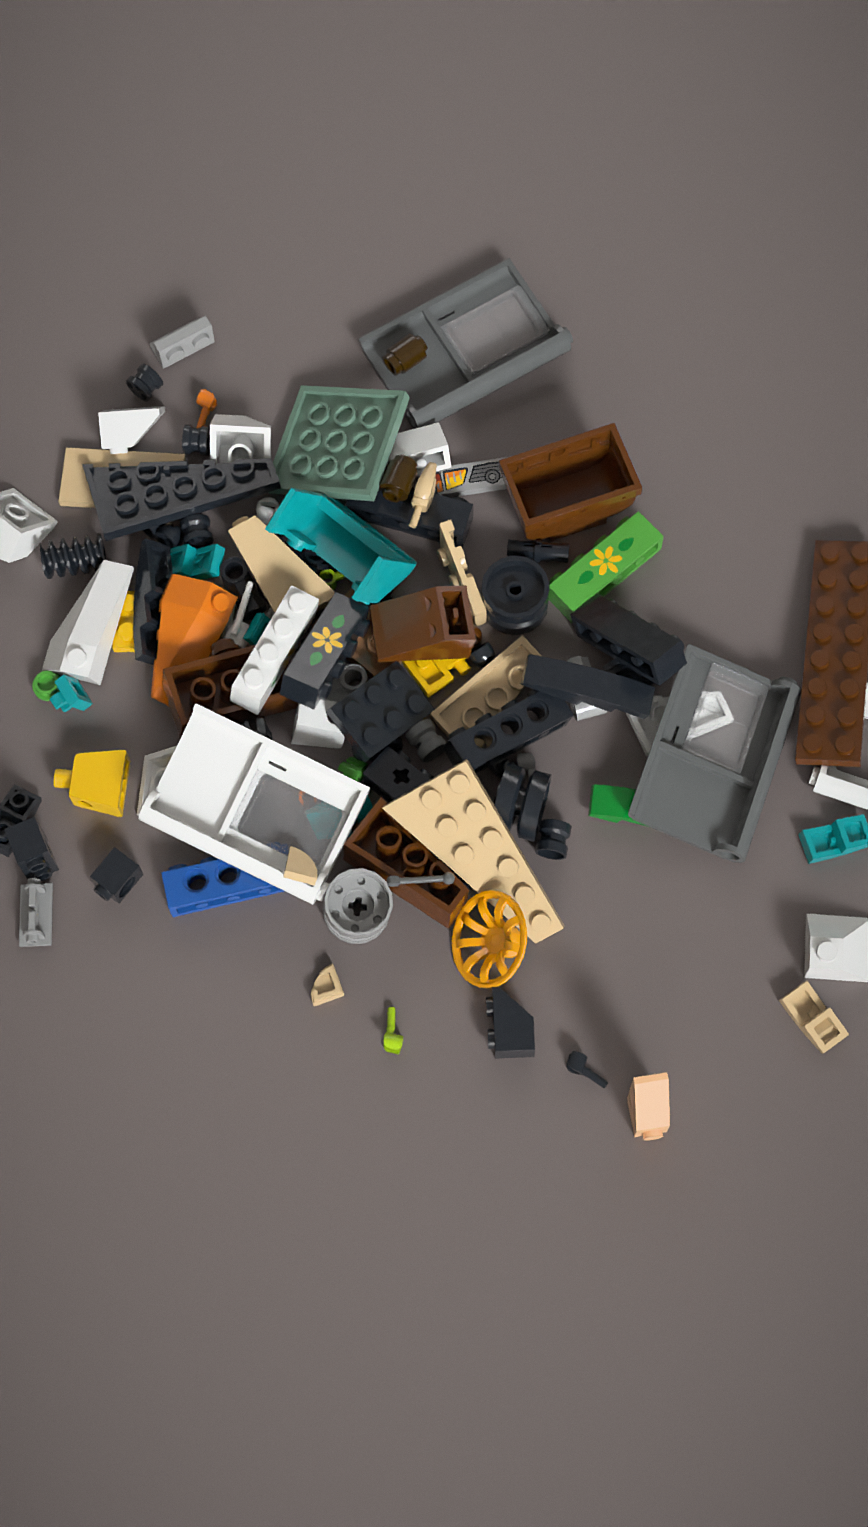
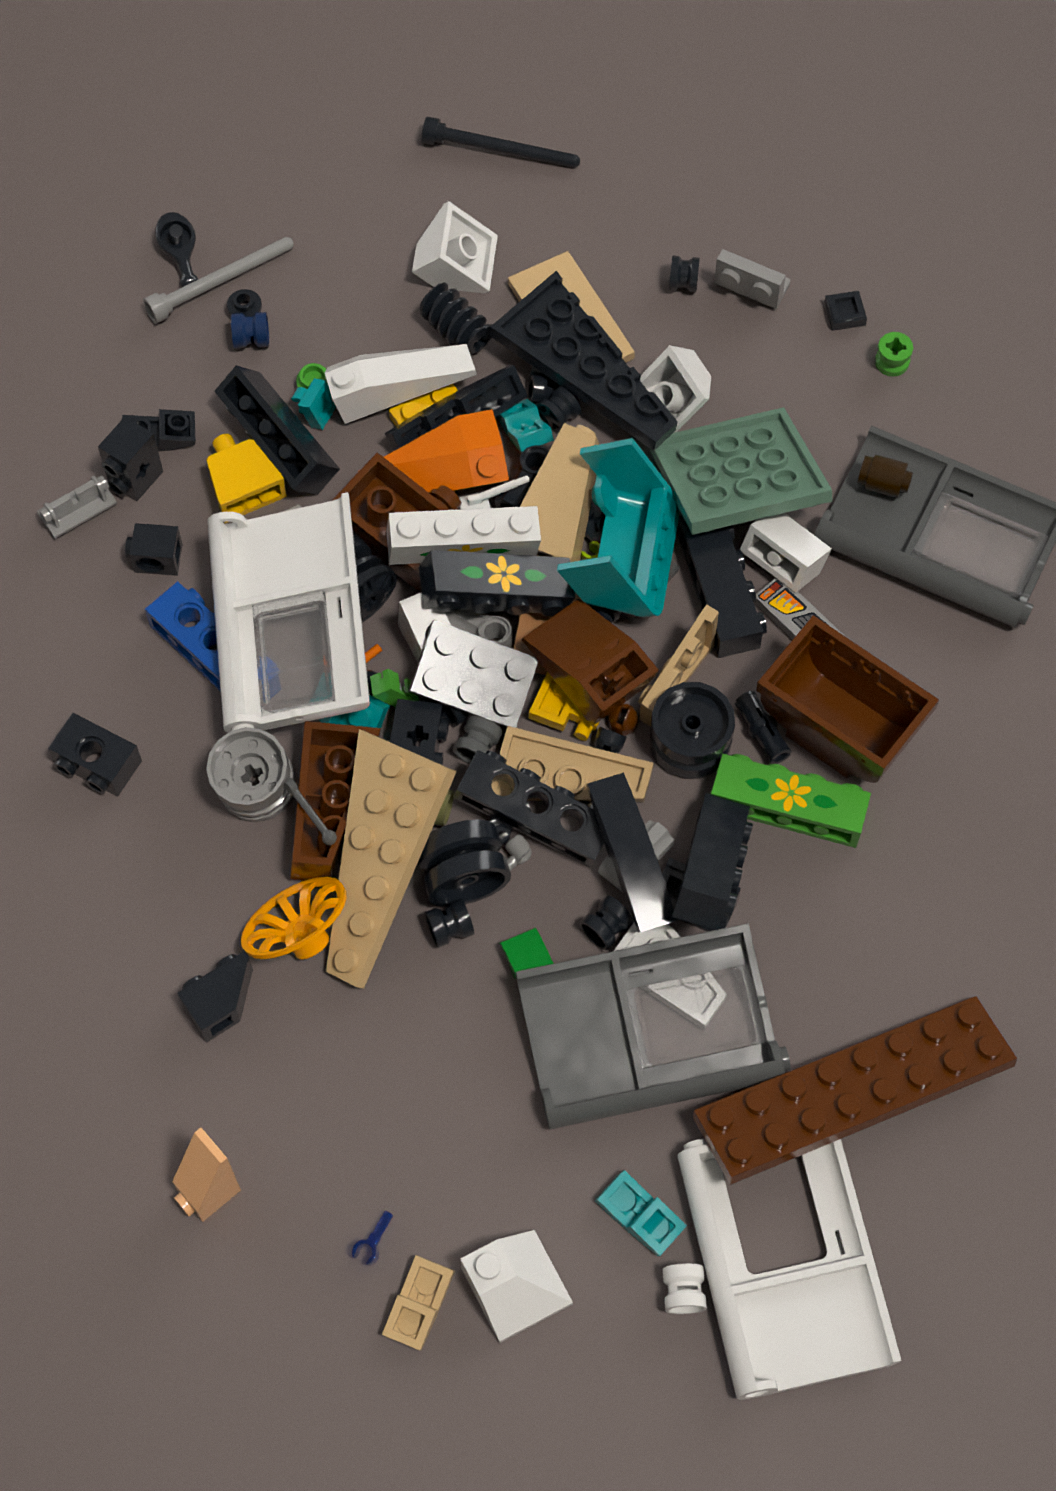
camera: 55 degrees right, 5 degrees down
(78, 733) = (276, 430): none -> black brick
(126, 426) = (623, 283): white slope -> none
(196, 439) = (651, 346): black wheel -> none
(208, 402) = (706, 340): orange hand -> none
(248, 299) = (845, 310): none -> black tile
(269, 994) = (83, 738): none -> black brick
(300, 867) = (246, 689): tan tile -> none
(308, 297) = (886, 358): none -> bright green wheel
(326, 986) = (161, 802): tan tile -> none
(392, 1041) = (138, 891): lime hand -> none
(398, 478) = (735, 543): dark brown brick -> none
(423, 492) = (737, 575): tan hand -> none
(576, 1065) = (219, 1086): black hand -> none
(619, 736) = (606, 923): none -> black wheel
(751, 1022) = (373, 1239): none -> clear blue hand

